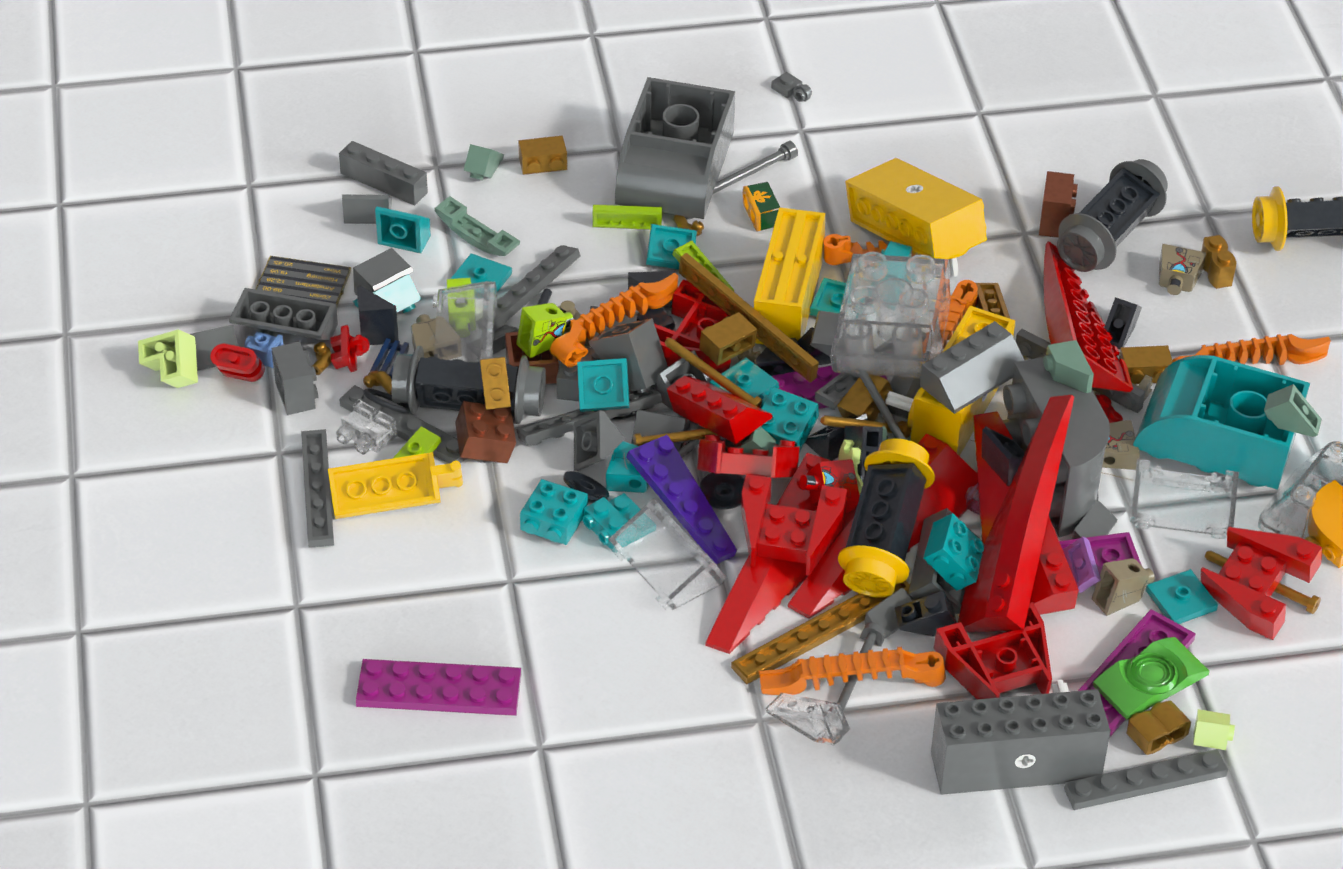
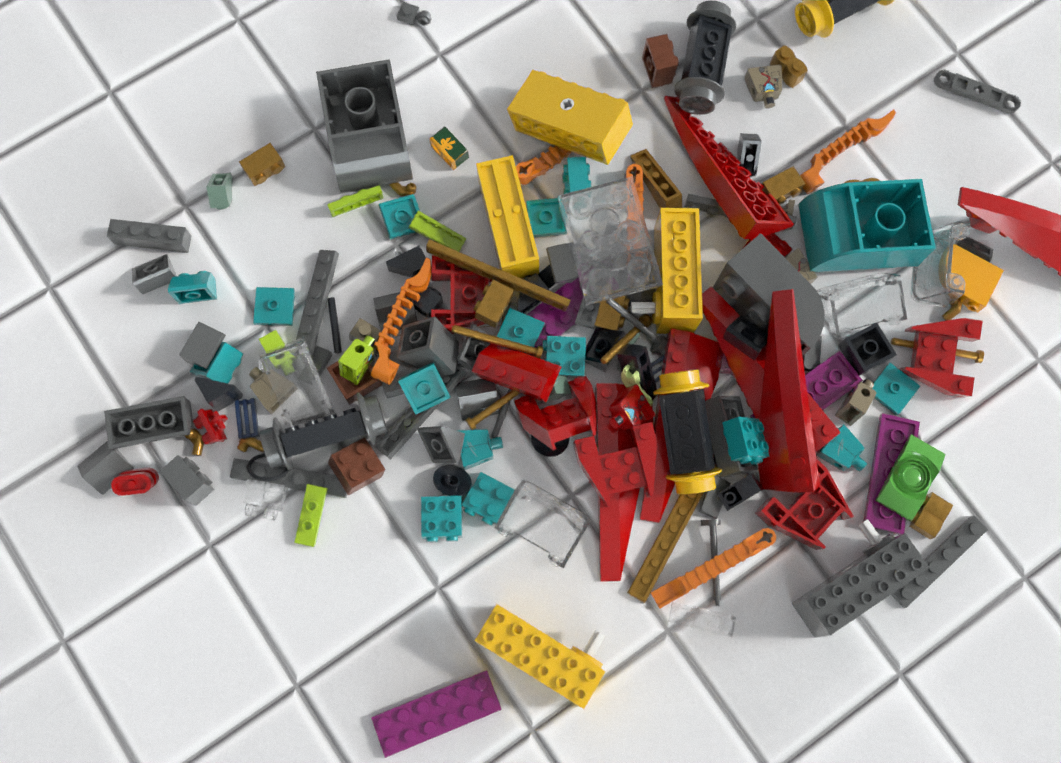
camera: 30 degrees left, 30 degrees up
(171, 354) = (83, 501): yellowish green brick -> none
(262, 344) = (153, 454): medium blue brick -> none
(304, 279) = (142, 374): piece -> none
(317, 488) = (256, 571): dark grey plate -> none
(390, 484) = (310, 549): yellow hinge -> none
(474, 232) = (247, 262): sand green slope -> none
(495, 383) = (350, 435): pearl gold plate -> none
(592, 661) = (562, 669): none -> yellow piece
(676, 487) = (516, 454): dark purple wing -> none
(786, 151) = (440, 83): piece -> none
(971, 367) = (696, 275): dark grey slope -> none
(1069, 365) = (771, 254): sand green slope -> none
(1078, 626) = (843, 451): none -> teal torso
(1082, 563) = (826, 399): medium lavender plate -> none
(1164, 541) = (867, 349): none -> black brick
(1212, 729) = (967, 503): yellowish green brick -> none
(1292, 412) = (929, 219): sand green slope -> none

